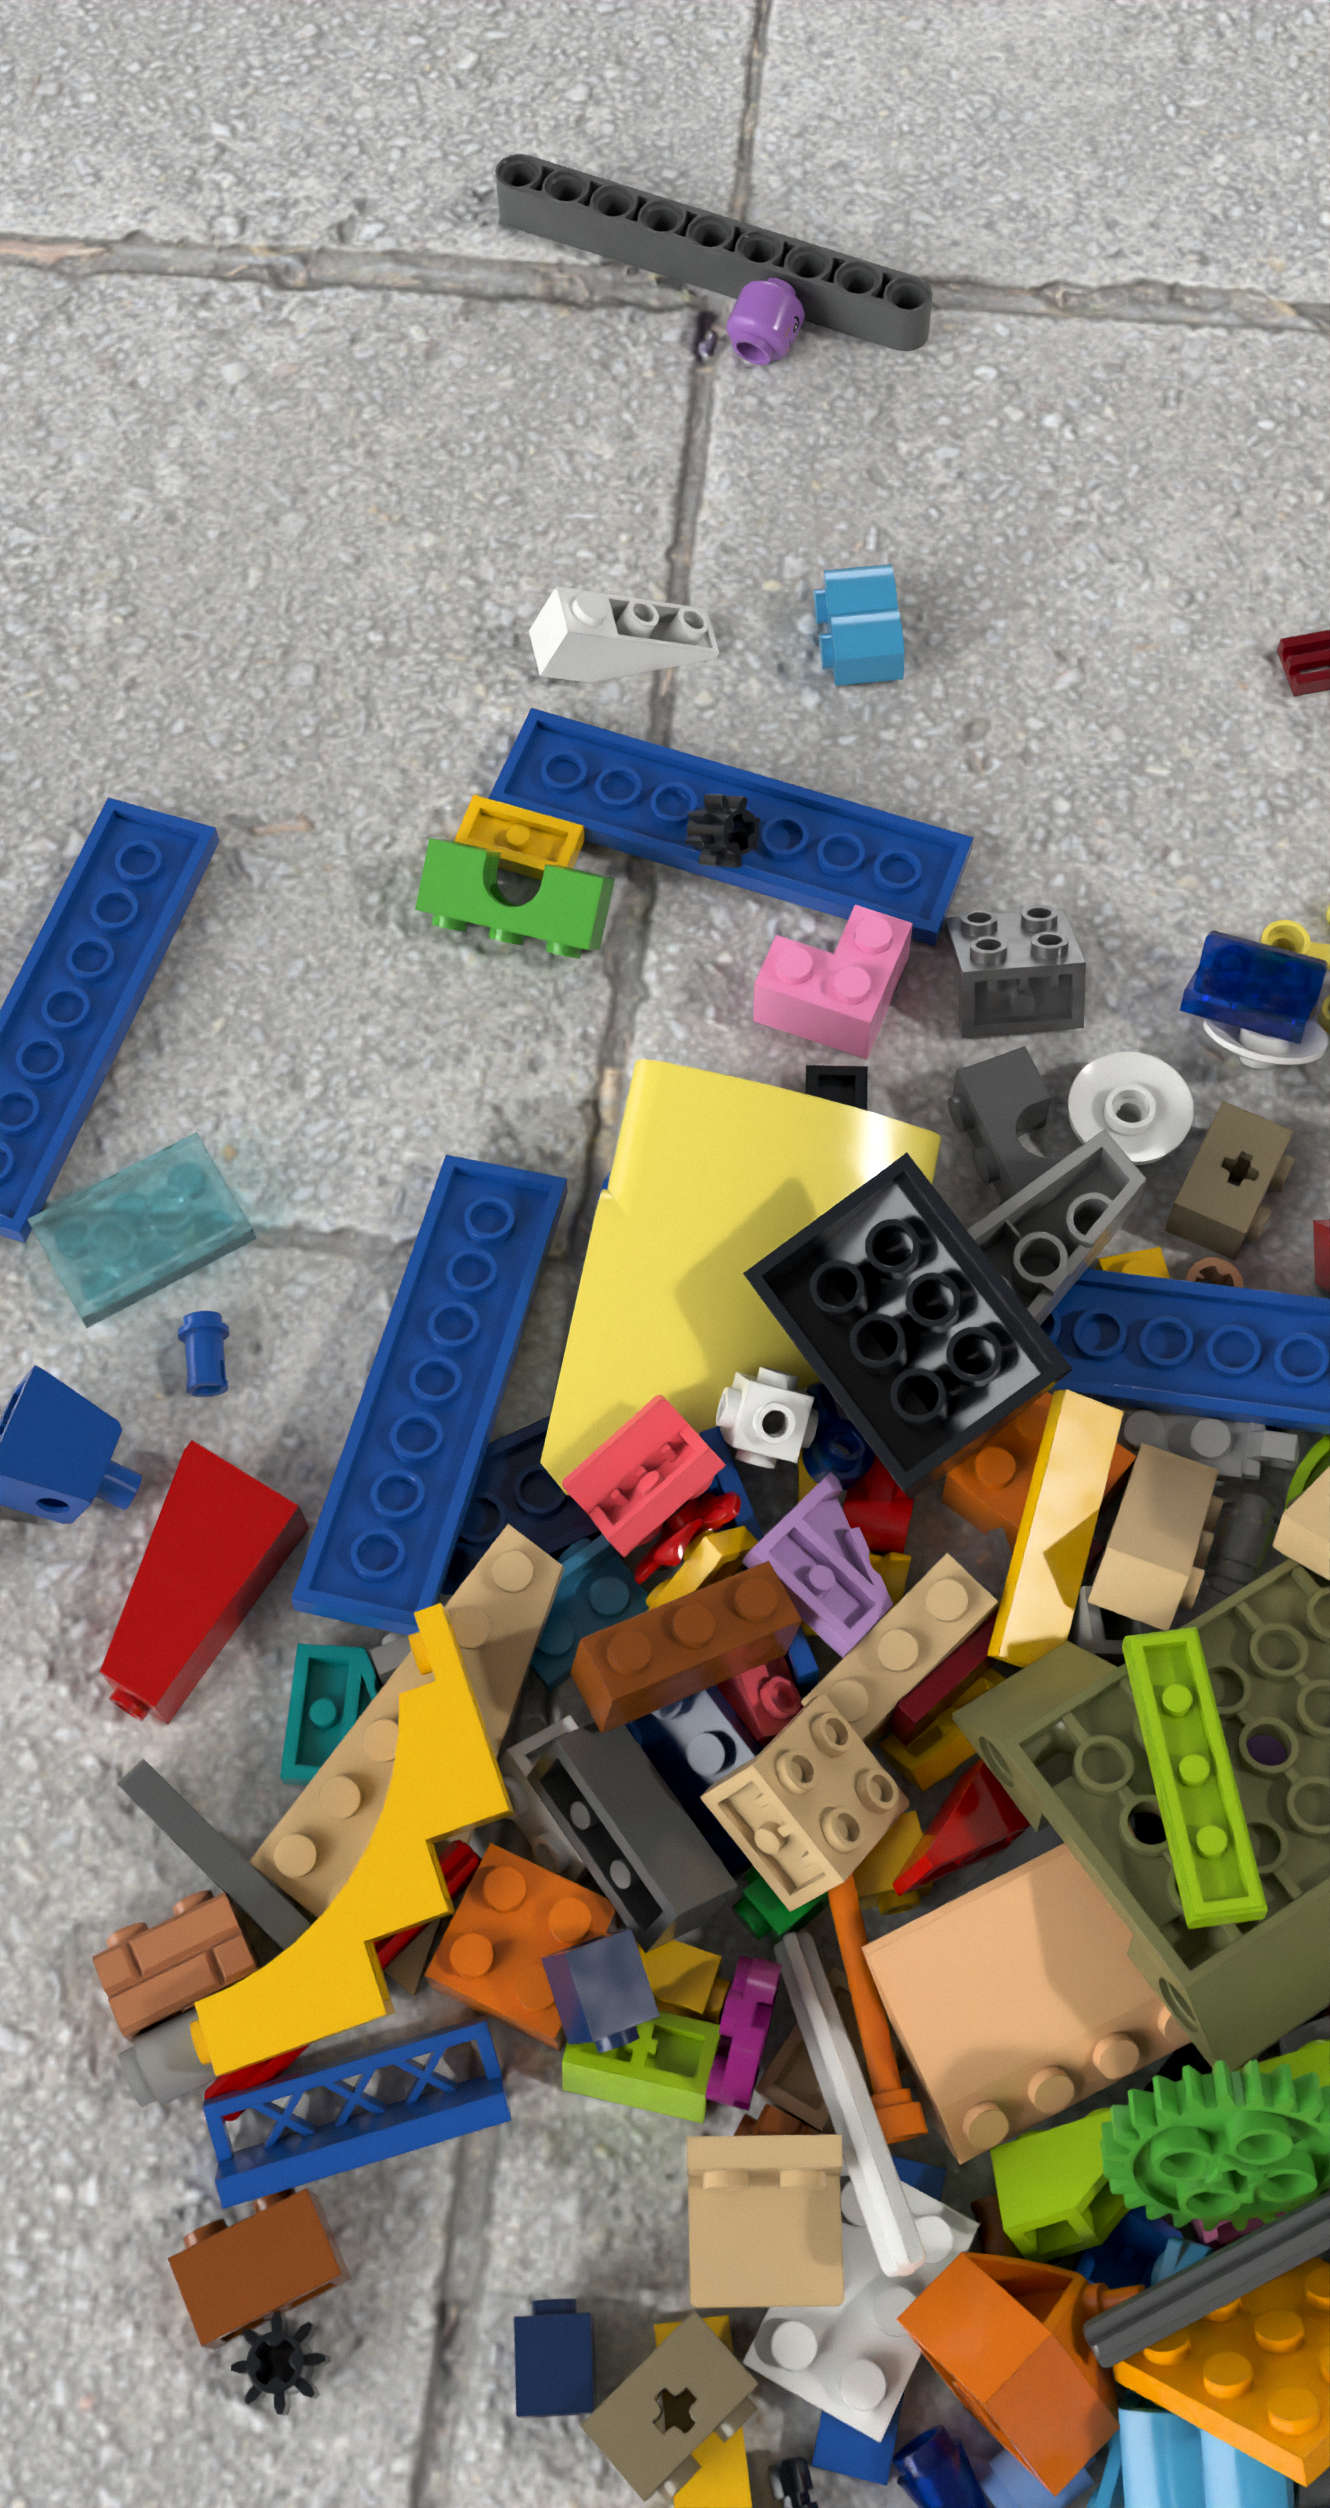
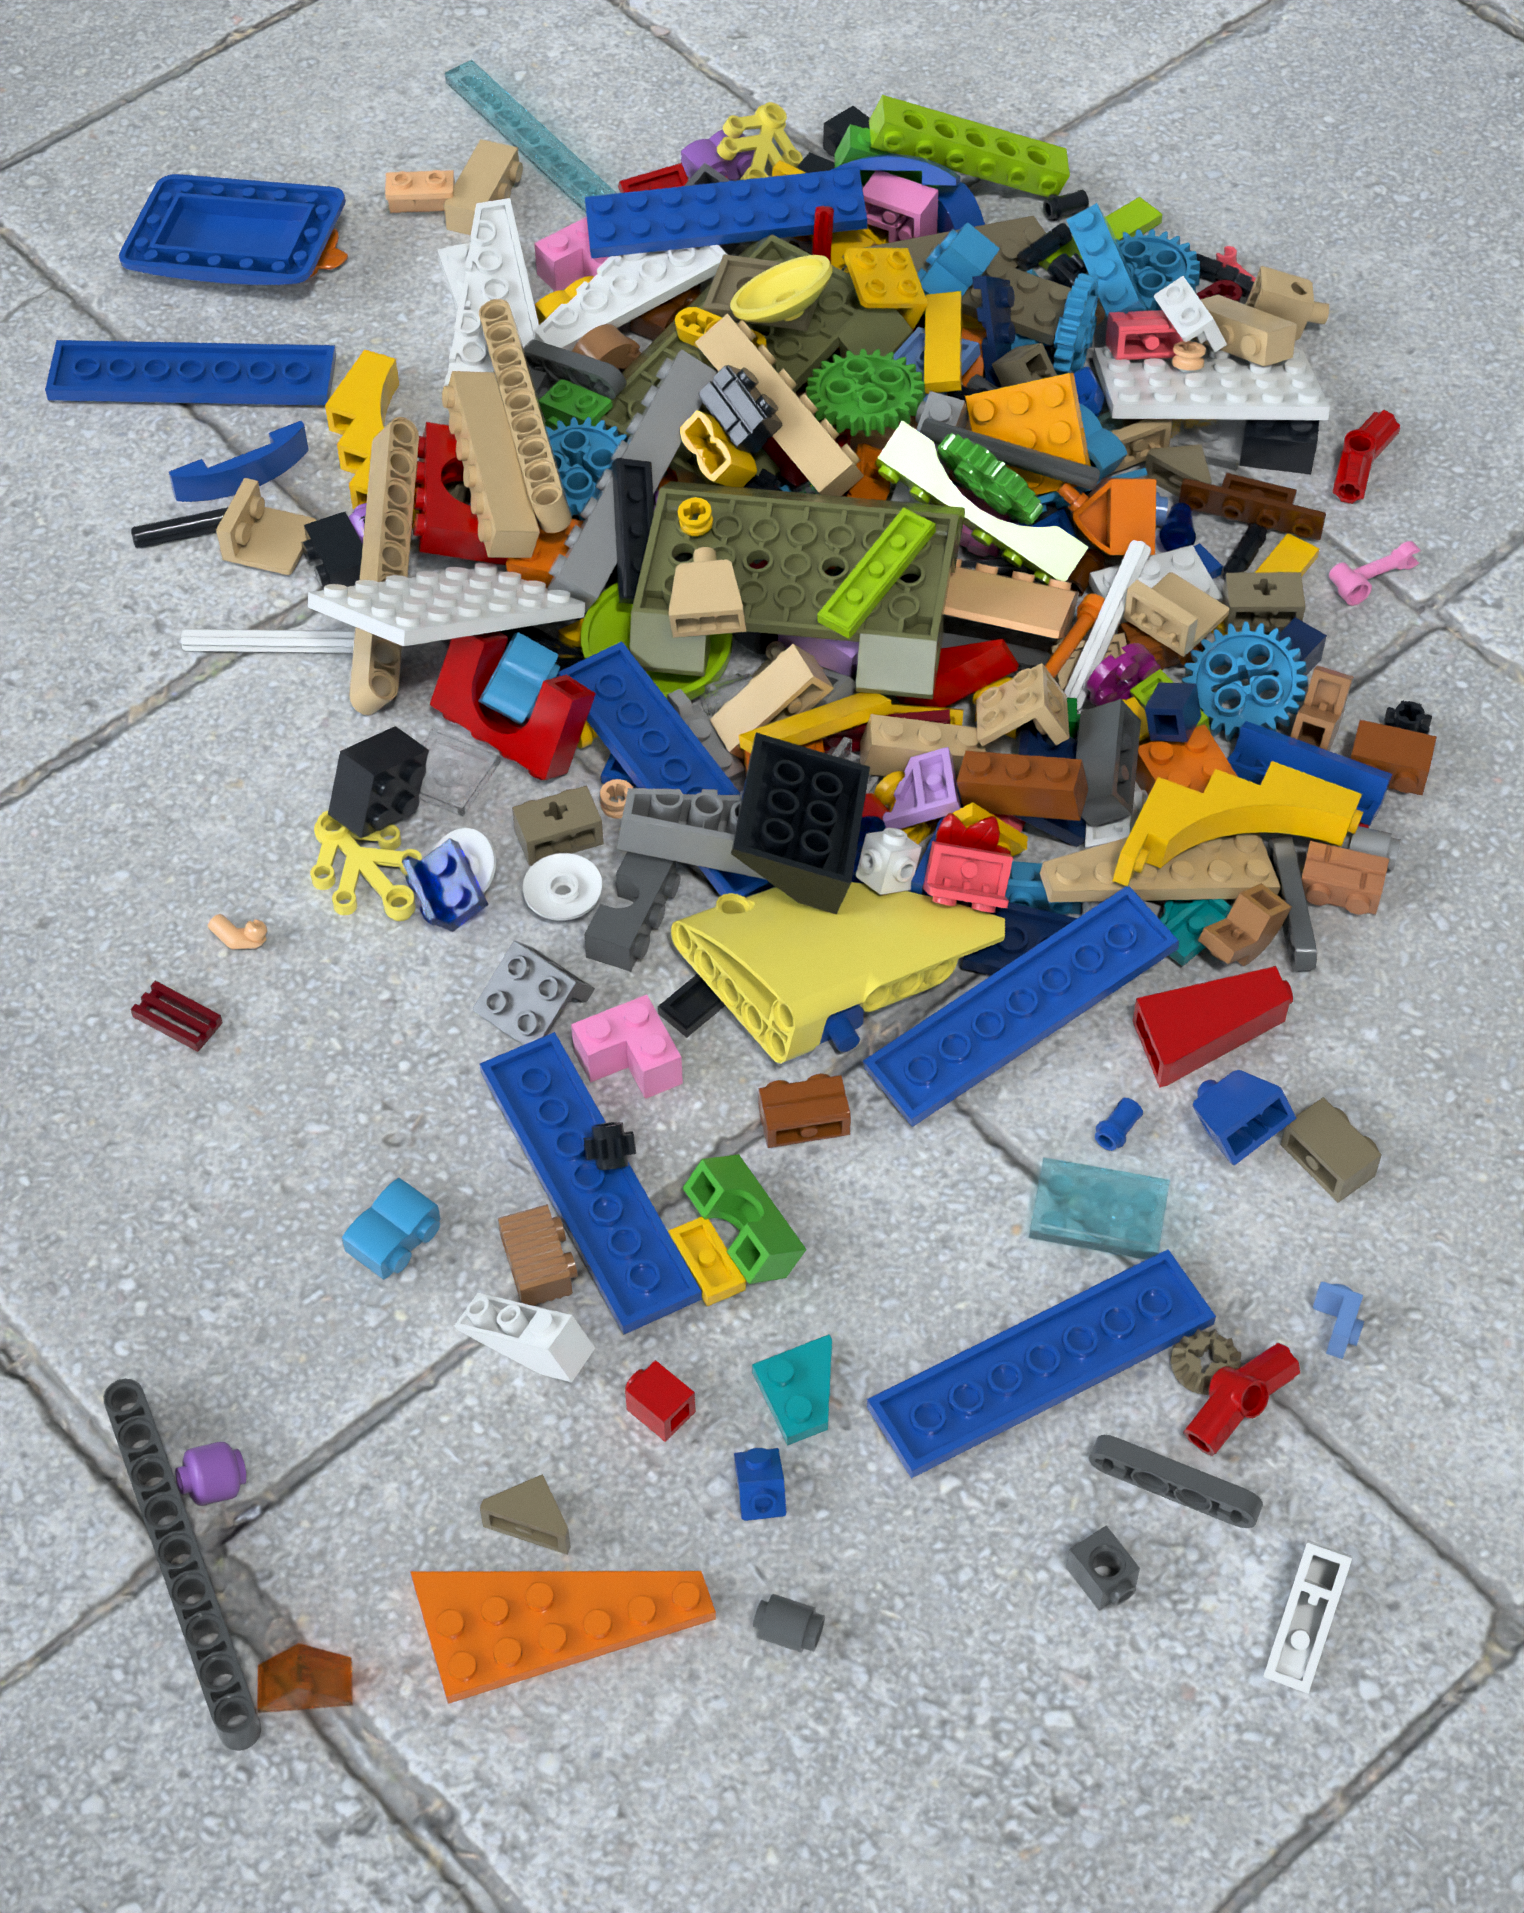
camera: 140 degrees left, 10 degrees down
(110, 592) = (789, 1623): none -> dark grey brick
(246, 1751) = (1248, 927): none -> medium nougat brick
(259, 688) = (760, 1484): none -> blue bracket
(307, 805) = (798, 1388): none -> teal wing
(344, 450) = (523, 1624): none -> orange wing
(415, 2241) = (1323, 708): none -> medium nougat brick
(426, 677) = (659, 1400): none -> red brick
(440, 500) = (528, 1514): none -> dark tan slope
(498, 262) = (304, 1680): none -> clear orange slope
(576, 1071) = (804, 1110): none -> dark orange brick
(625, 2241) = (1236, 652): none -> dark azure gear
(694, 708) = (536, 1255): none -> medium nougat brick

